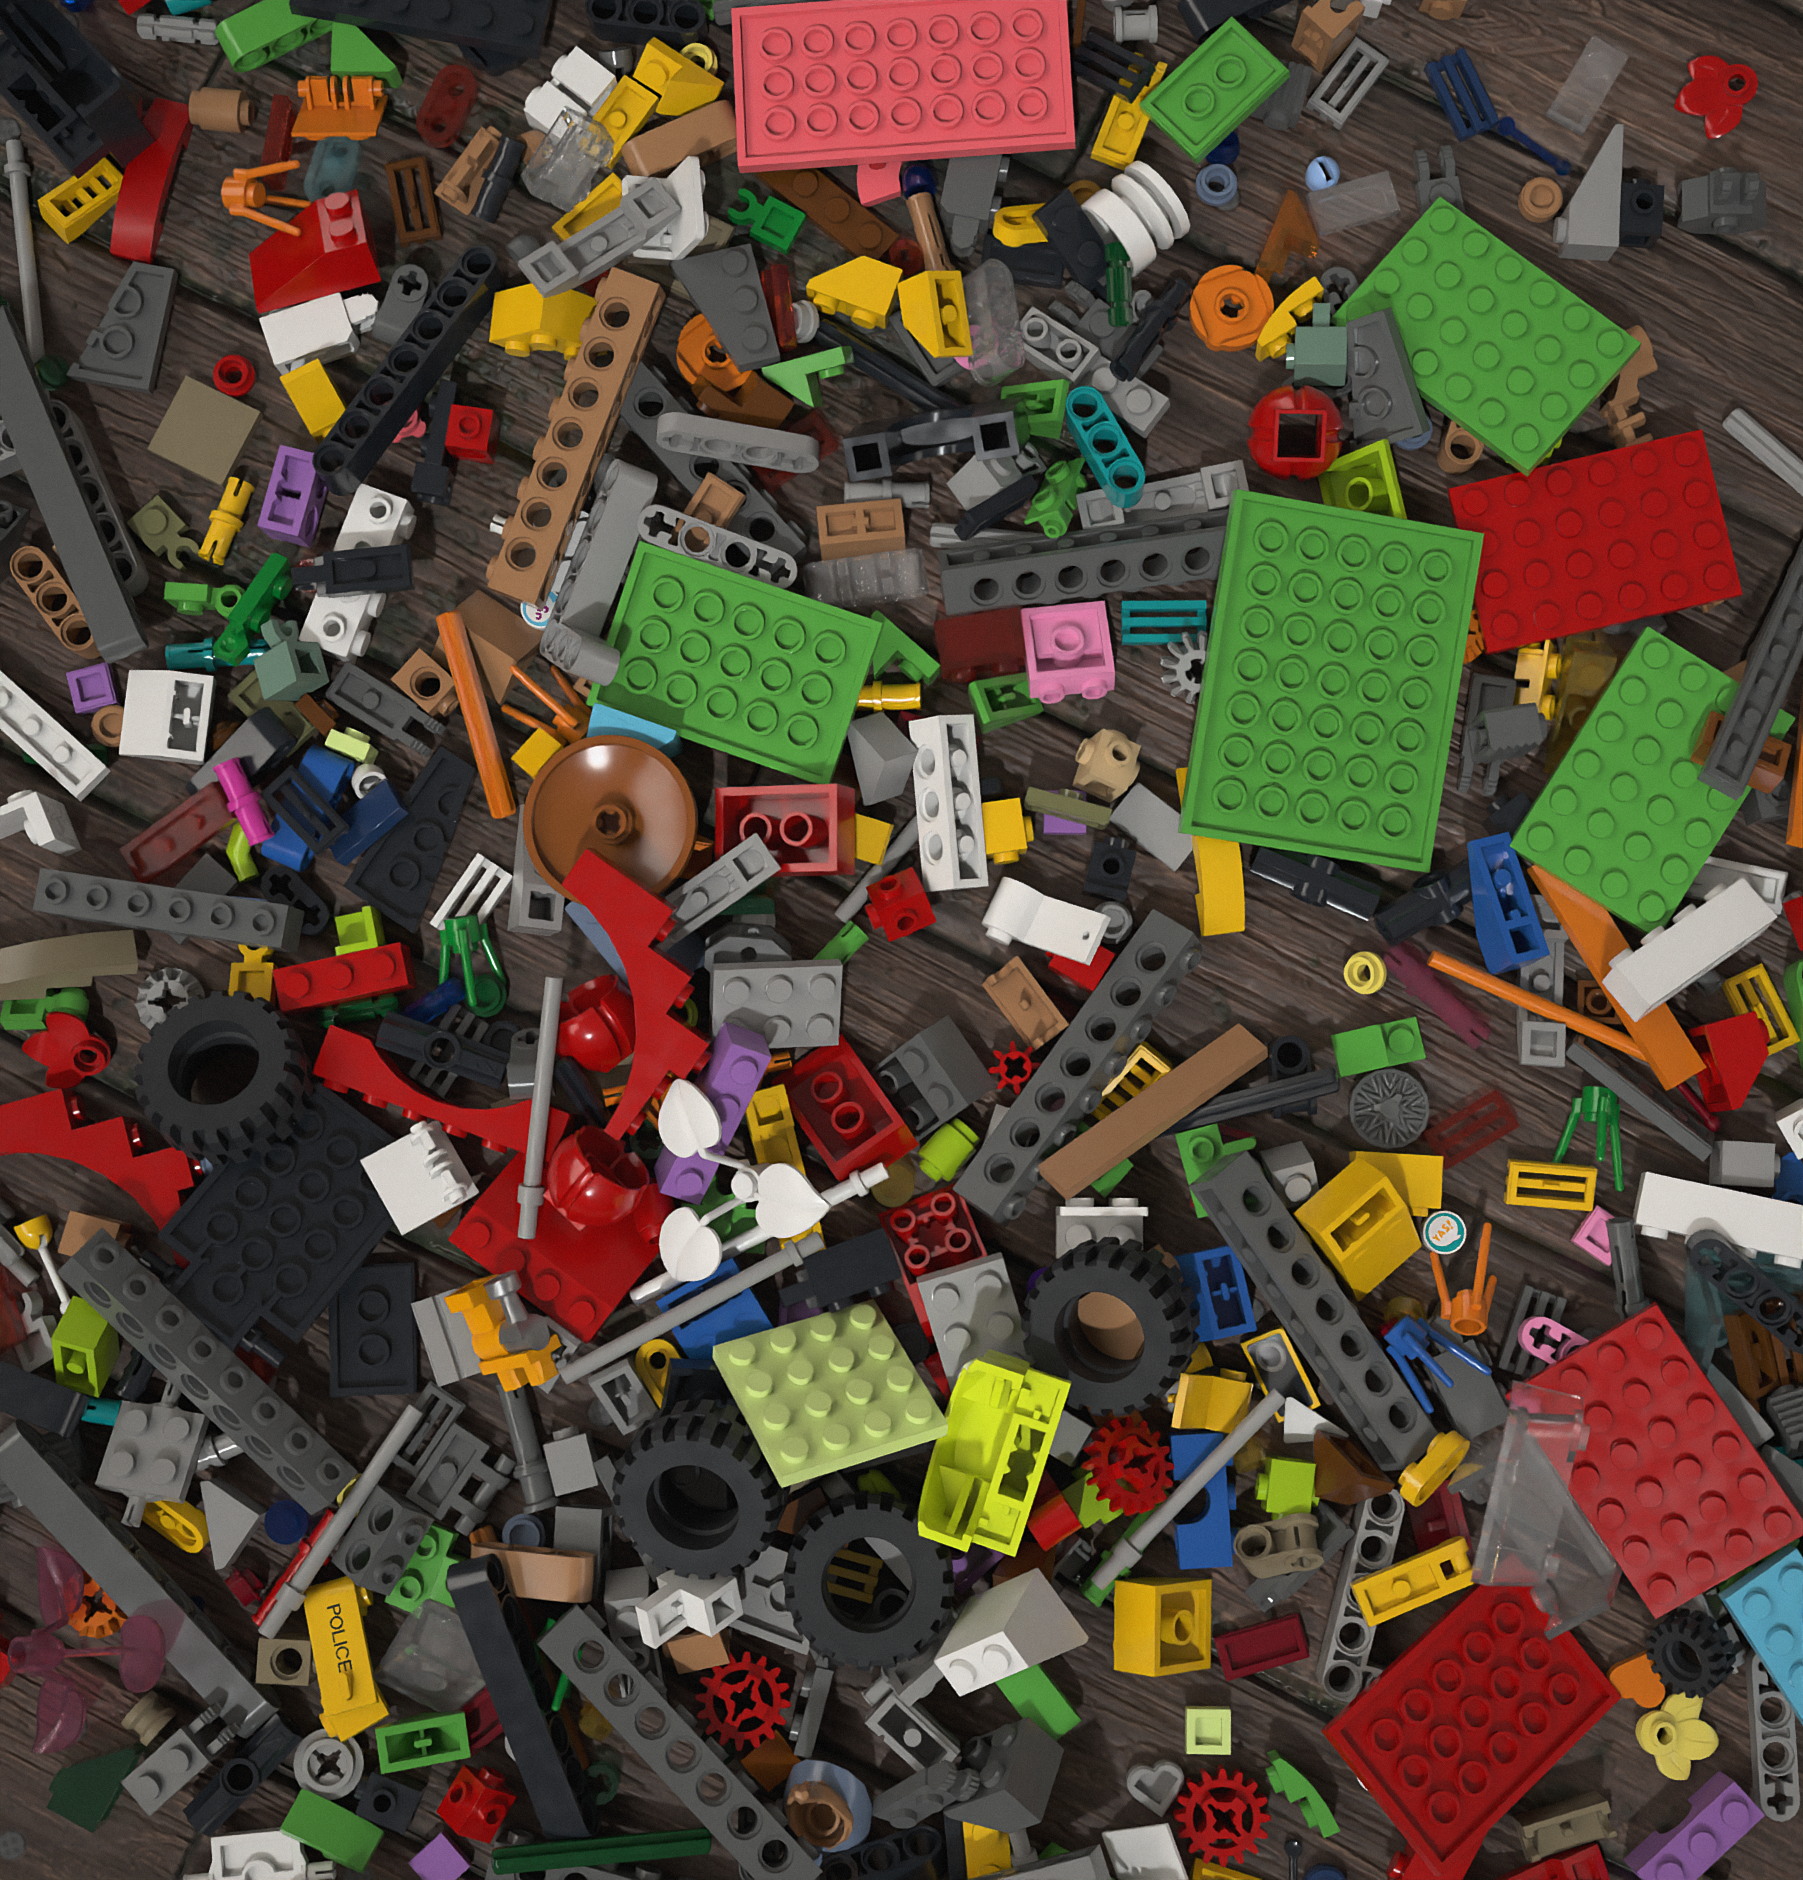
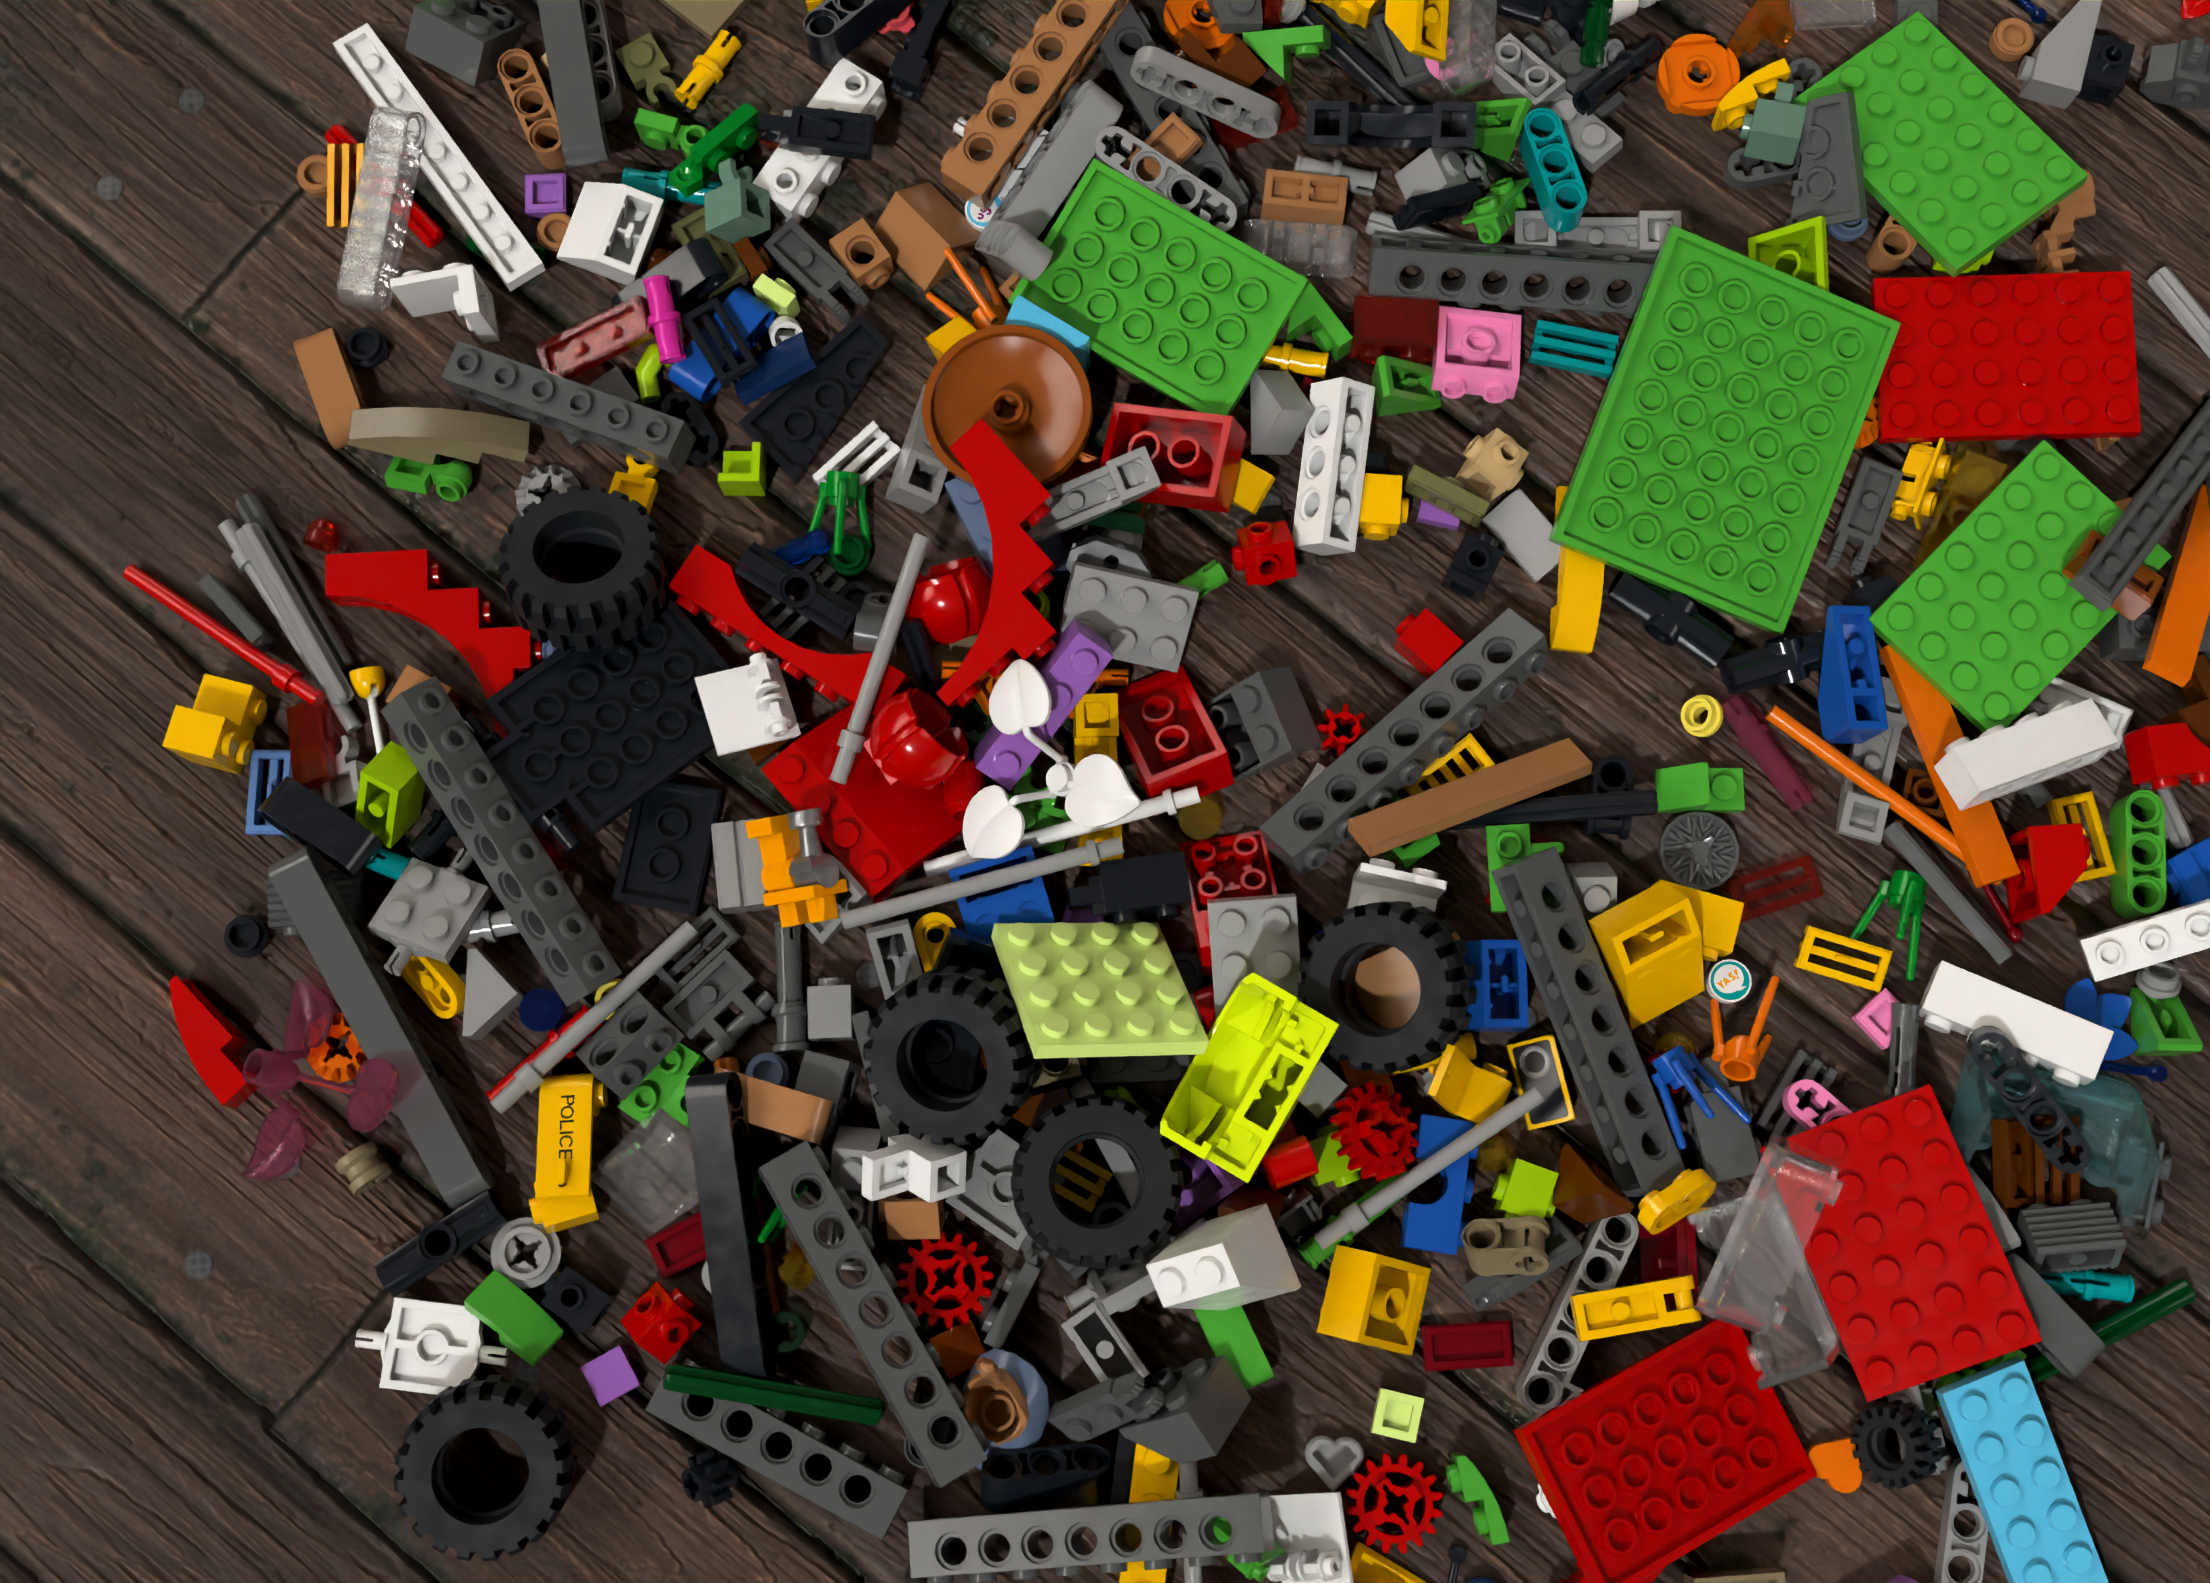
camera: 10 degrees right, 5 degrees down
(62, 1048) = (435, 516): red plate -> none
(93, 1785) = (294, 1221): clear green slope -> none
(179, 1760) = (383, 1212): dark grey hinge -> none
(244, 1585) = (486, 1061): dark red plate -> none
(271, 1663) = (494, 1140): dark tan brick -> none
(293, 498) = (776, 59): medium lavender brick -> none
(344, 978) = (720, 508): red brick -> none
(357, 1010) = (722, 542): dark green axle -> none
(422, 1741) = (623, 1247): bright green slope -> none
(472, 434) = (957, 38): red brick -> none
(476, 714) = (901, 290): orange axle -> none
(877, 872) = (1265, 512): light grey bar -> none
(948, 1150) = (1261, 796): lime brick -> none
(1025, 1004) = (1365, 673): medium nougat hinge -> none
(1043, 922) = (1386, 592): white door -> none
(1120, 922) = (1464, 616): light grey plate -> none
(1181, 663) = (1585, 384): light grey gear -> none
(1265, 431) = (1709, 185): red piece -> none
(1302, 1423) = (1553, 1133): white sticker -> none
(1505, 732) = (1885, 510): dark grey brick -> none
(1682, 1736) = (1870, 1528): light yellow plate -> none
(1744, 1164) = (2040, 976): light grey brick -> none

